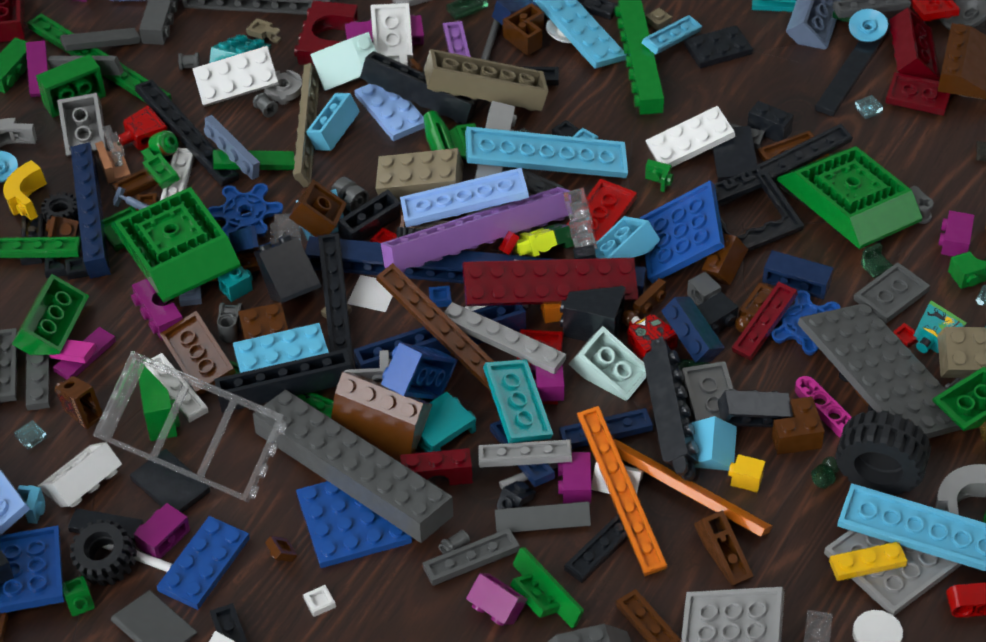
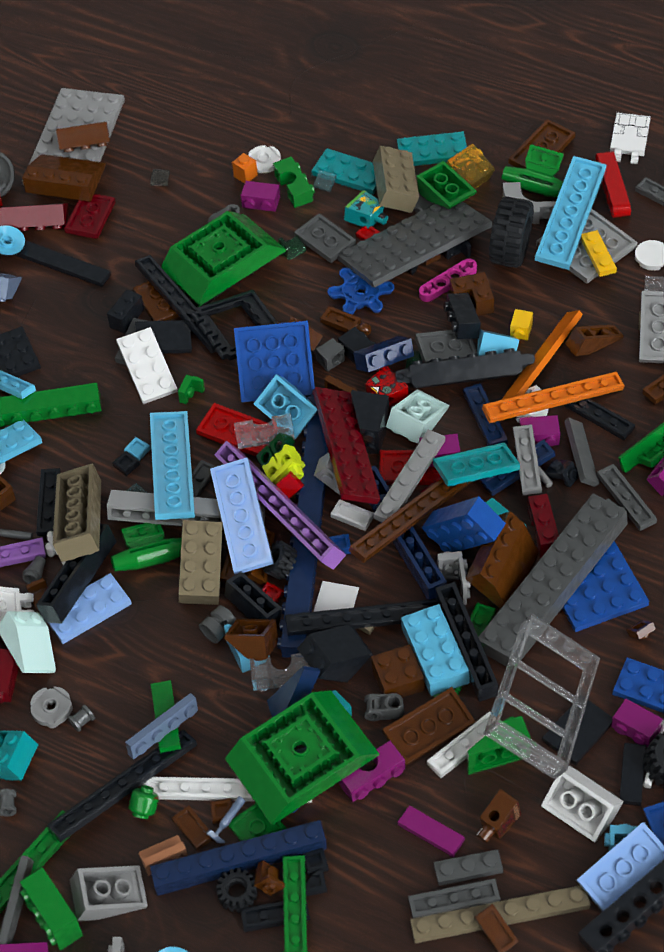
camera: 90 degrees left, 5 degrees up
(19, 187) = (215, 937): yellow arch -> none
(30, 434) = (536, 860): clear light blue tile -> none
(50, 318) = (397, 862): green slope -> none
(76, 351) = (436, 835): dark pink tile -> none
(112, 142) = (135, 854): clear plate -> none
(141, 127) = (115, 828): red torso -> none
(159, 169) = (180, 799): green hinge -> none
(235, 76) = (46, 743): white plate -> none
(240, 202) = (235, 702): blue plate -> none
(308, 113) = (104, 676): dark tan plate -> none
(333, 121) = (115, 648): medium azure brick -> none
(585, 252) = (303, 428): black tile -> none
(764, 321) = (366, 311): dark red plate -> none
(798, 274) = (308, 294): dark blue brick -> none
(824, 473) = (516, 281): clear green plate -> none
(868, 107) = (105, 247): clear light blue plate -> none

